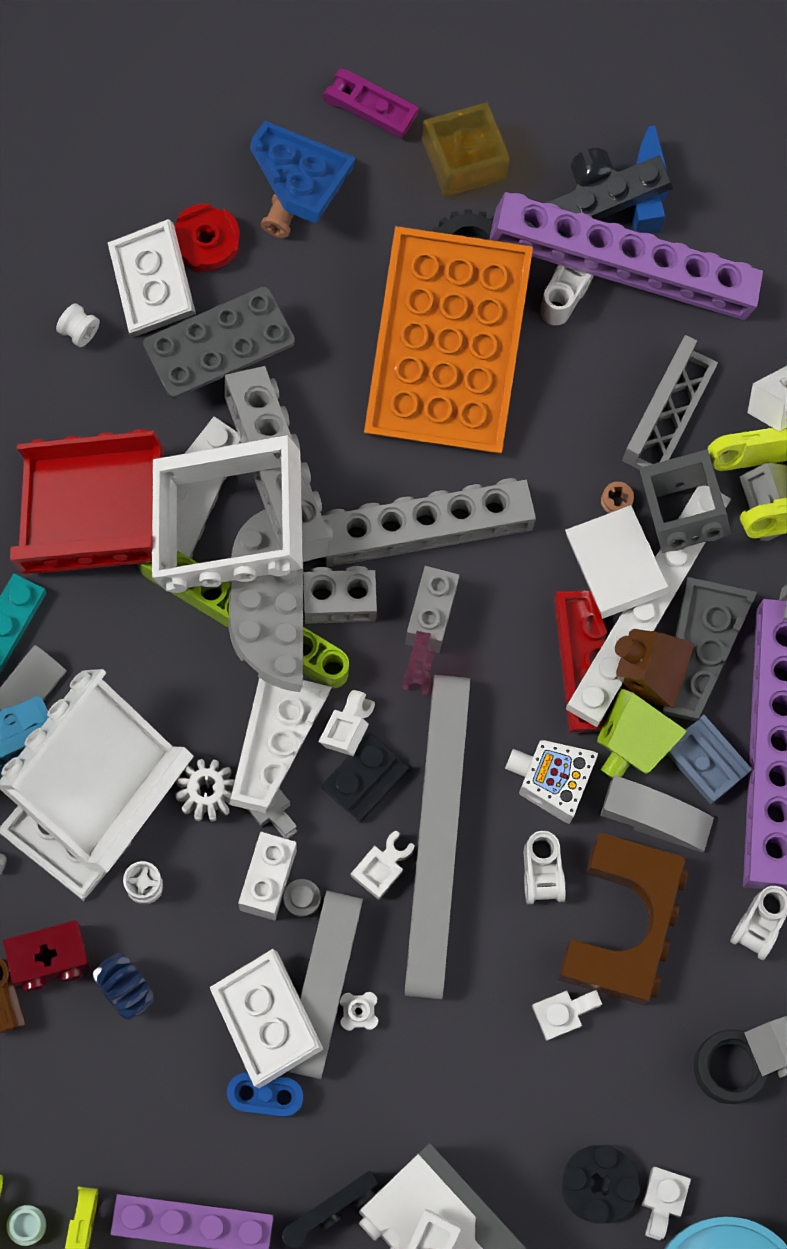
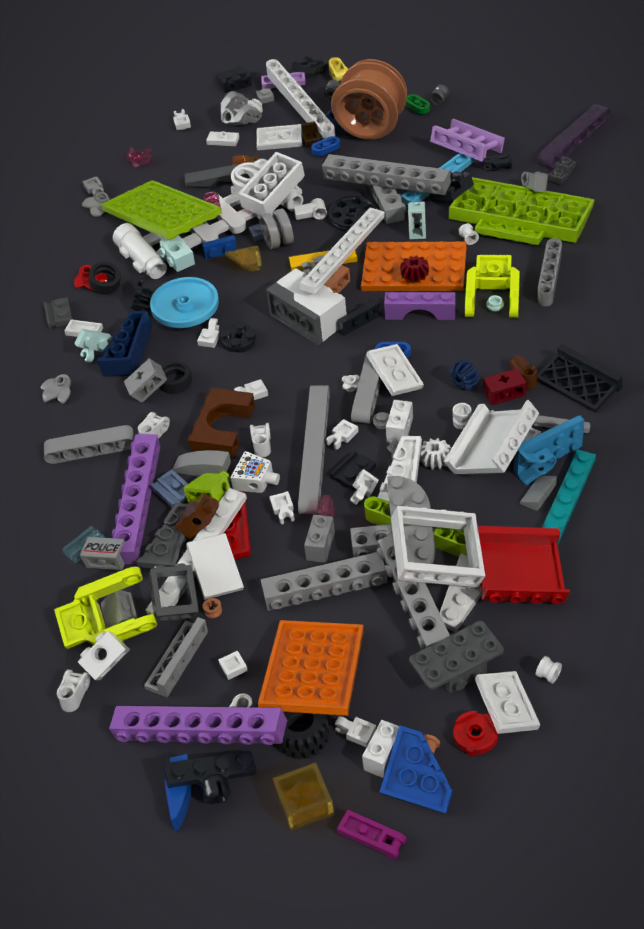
camera: 170 degrees left, 25 degrees down
(346, 216) = (380, 748): none -> white brick
(374, 251) = (357, 731): none -> white plate
(499, 700) = (282, 506): none -> white plate
(577, 381) = (233, 665): none -> white plate

